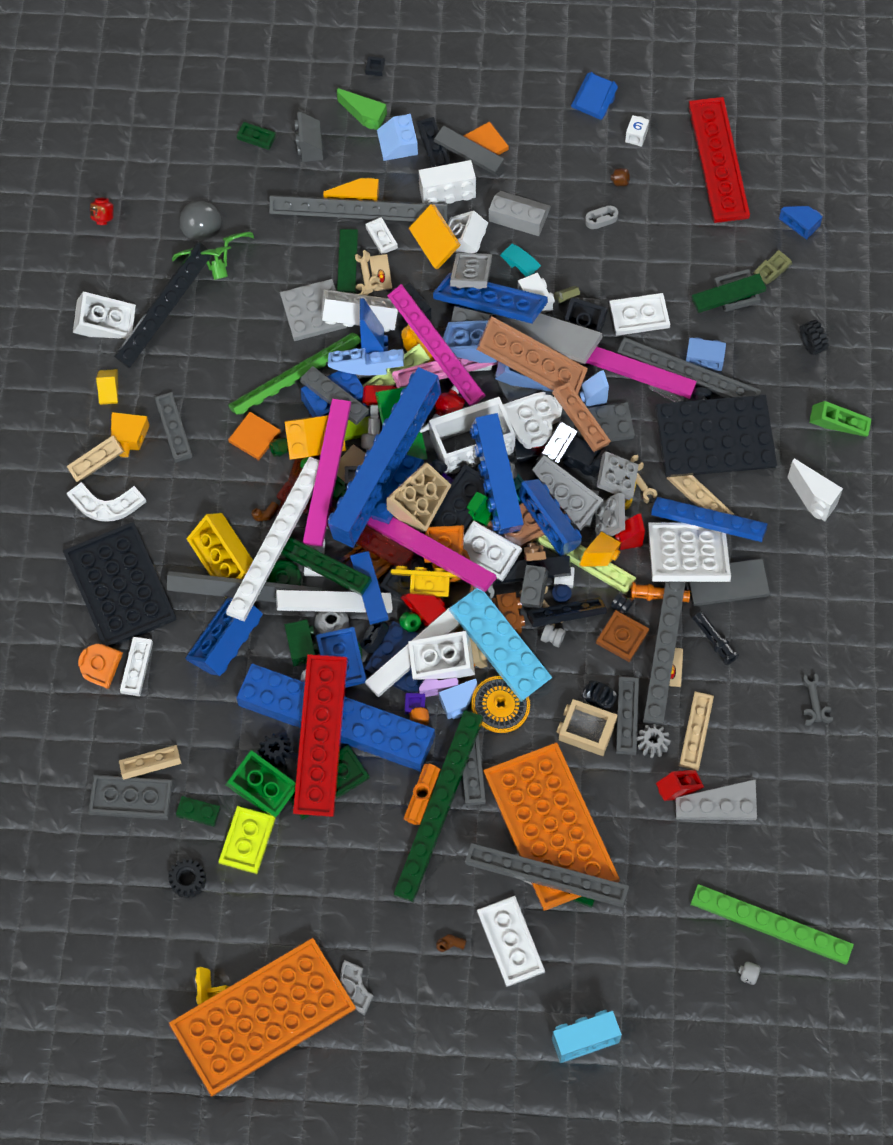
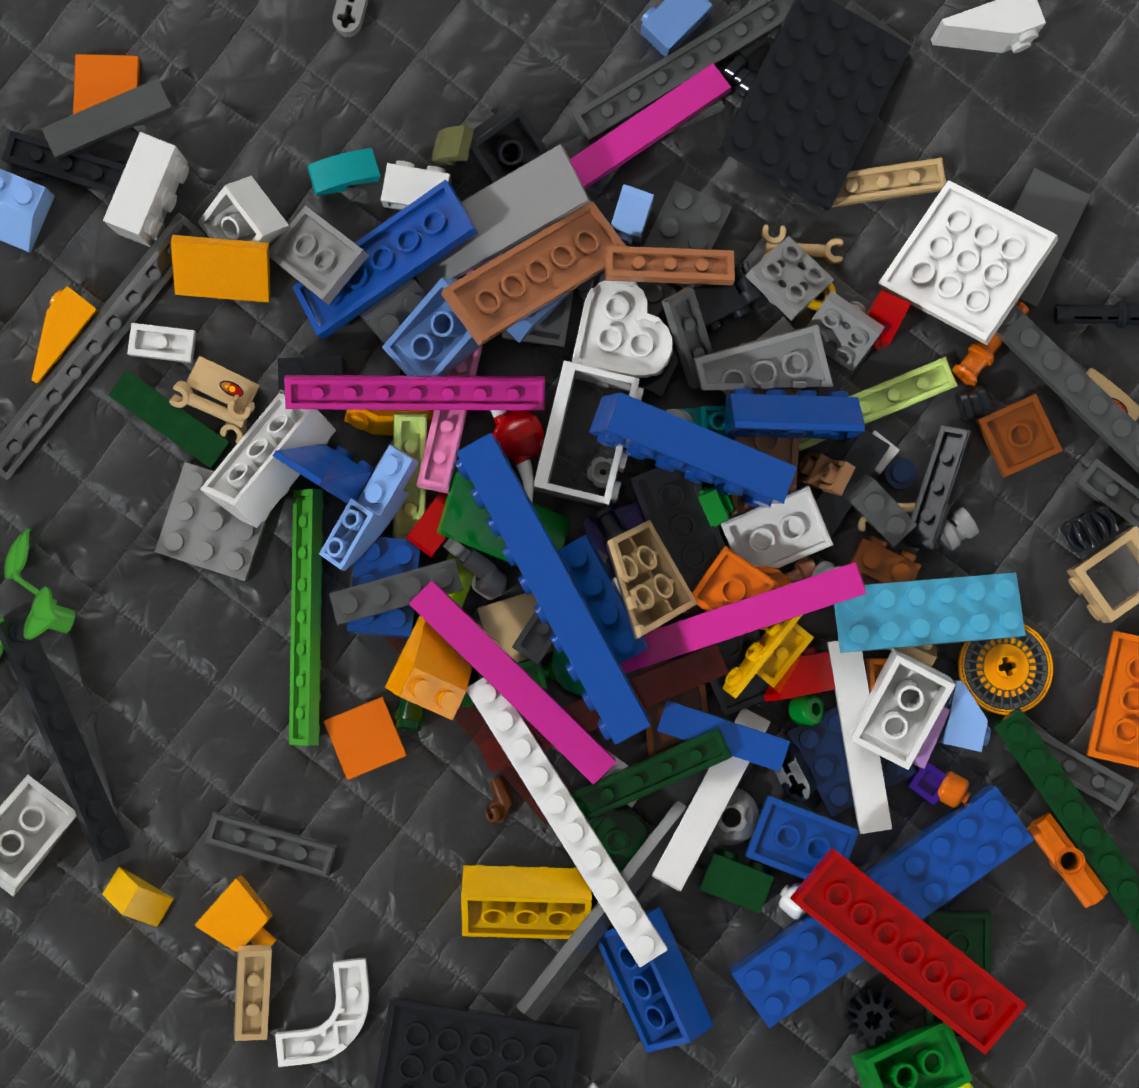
camera: 55 degrees left, 20 degrees up
(518, 213) = (261, 117): light grey slope -> none
(601, 551) = (883, 379): light orange slope -> none
(639, 314) = (547, 65): white plate -> none
(709, 519) = (933, 197): blue plate -> none

